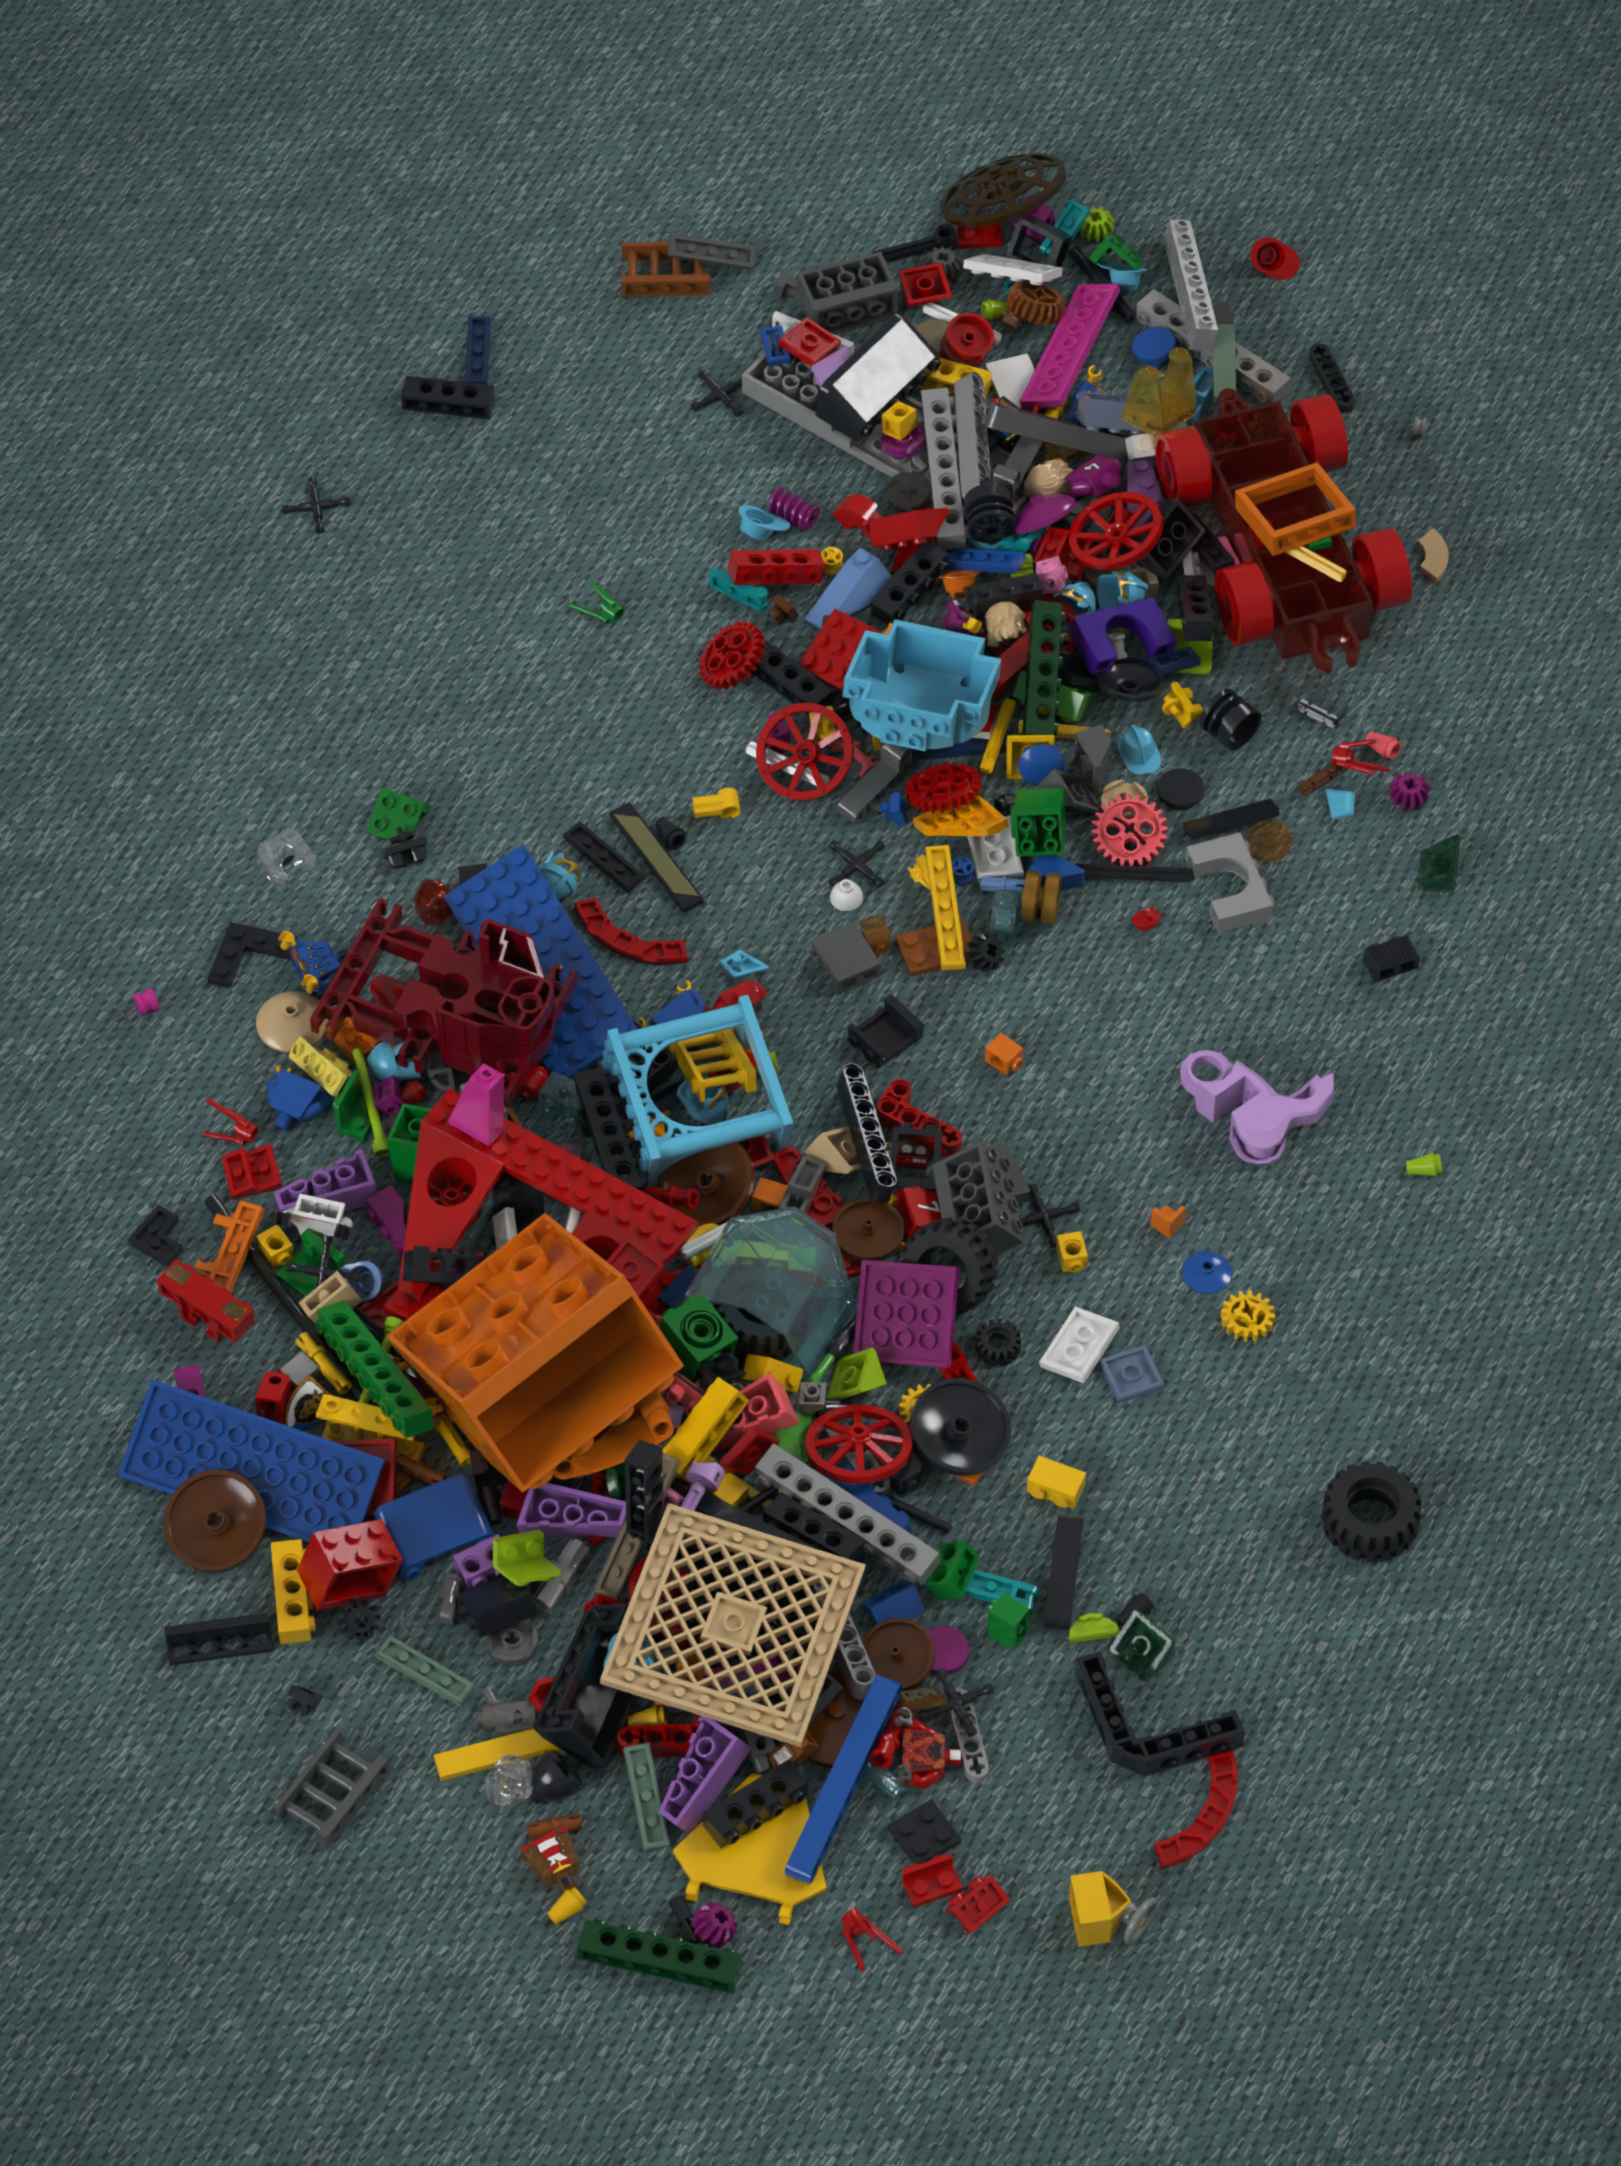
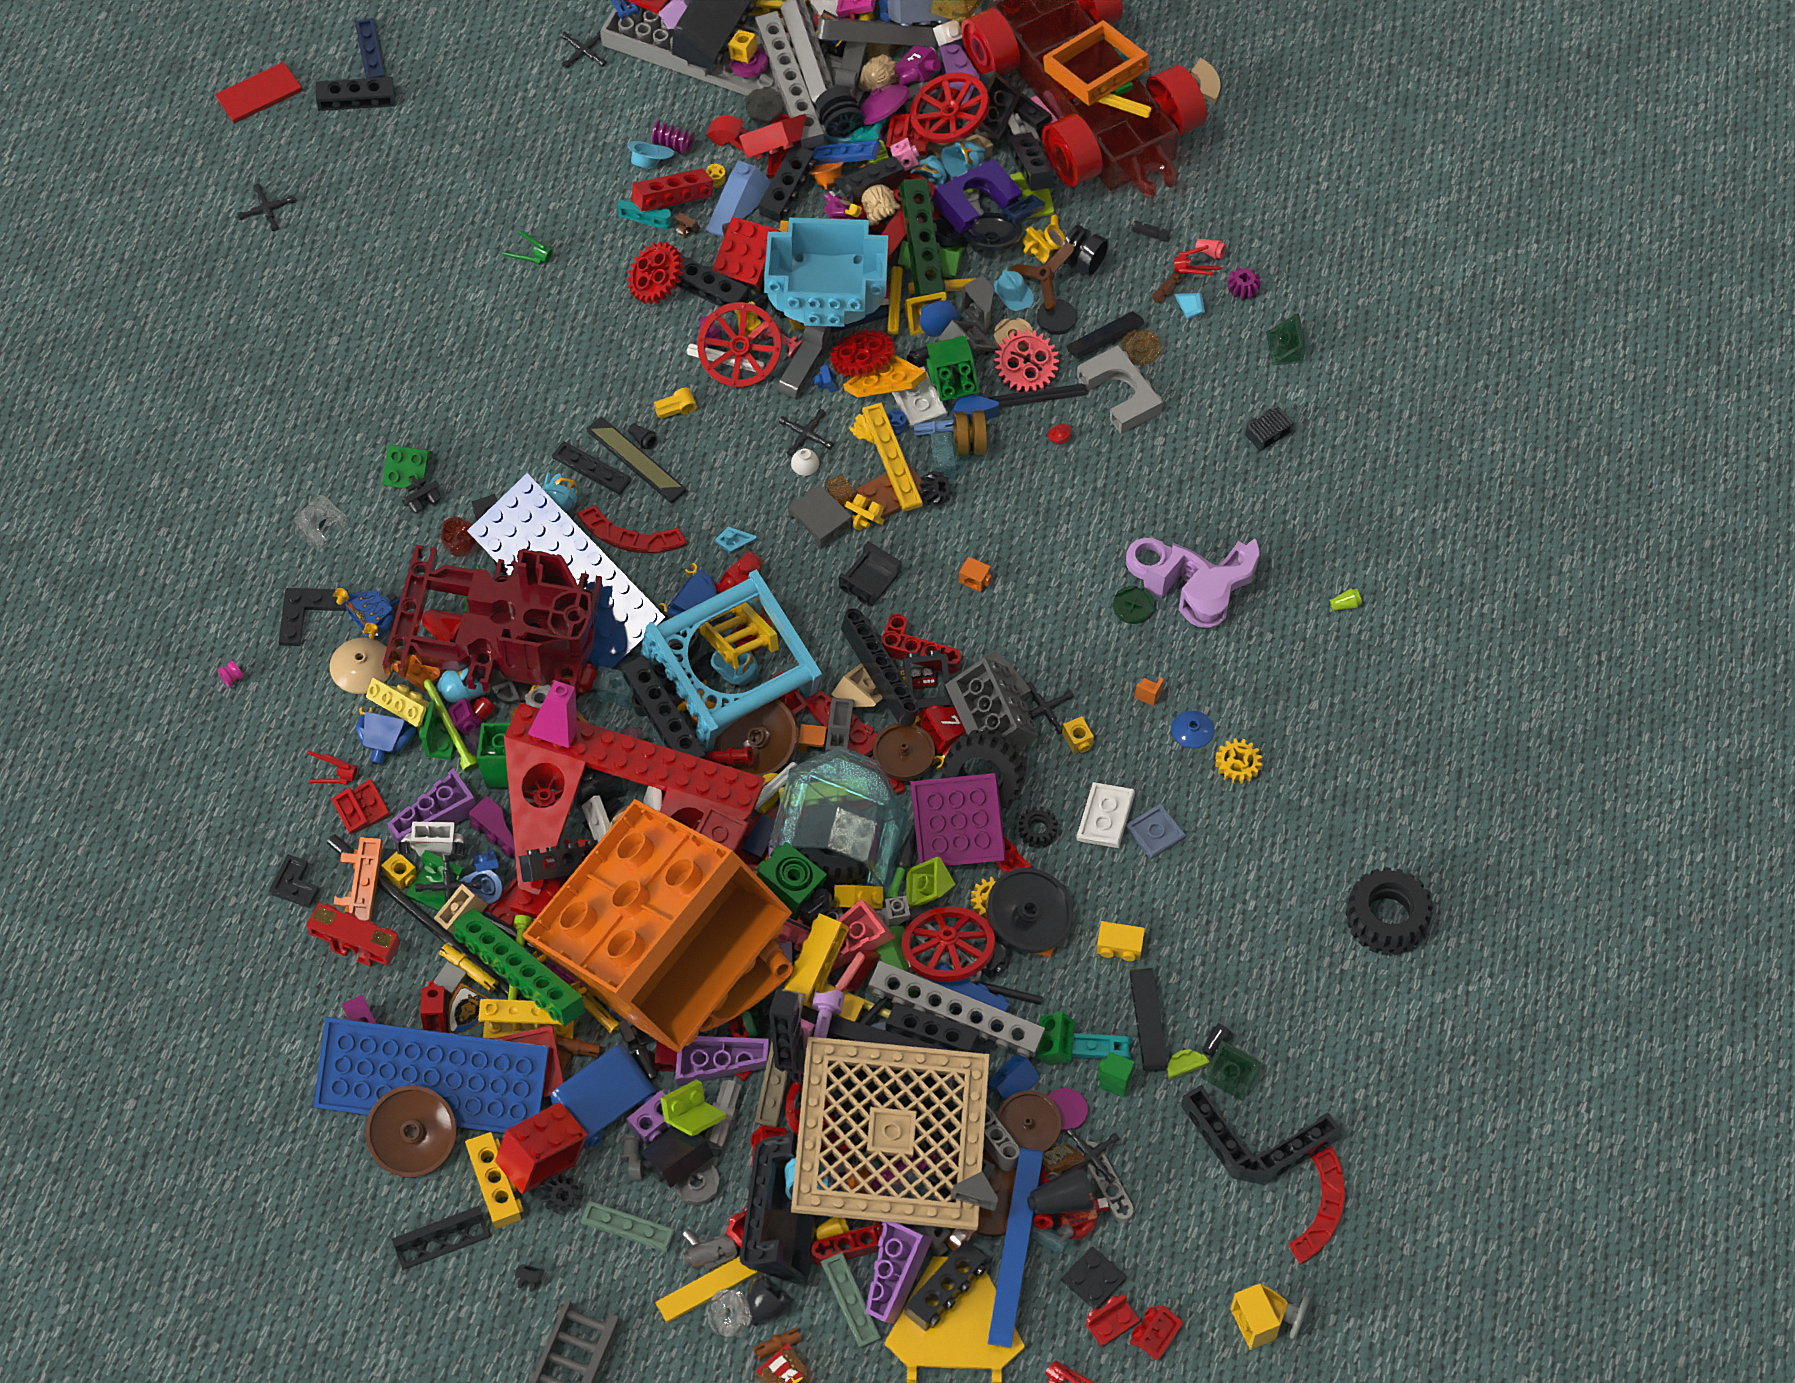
camera: 15 degrees left, 5 degrees up
(340, 377) = (258, 92): none -> red tile
(371, 1253) = (485, 861): none -> blue plate
(807, 1703) = (975, 1191): none -> dark grey slope
(892, 969) = (873, 513): none -> yellow hips
(907, 1731) = (1063, 1194): none -> black cone
(1178, 1123) = (1133, 605): none -> dark green tile
(1180, 736) = (1050, 268): none -> reddish brown piece
(1201, 693) = (1053, 234): none -> yellow piece

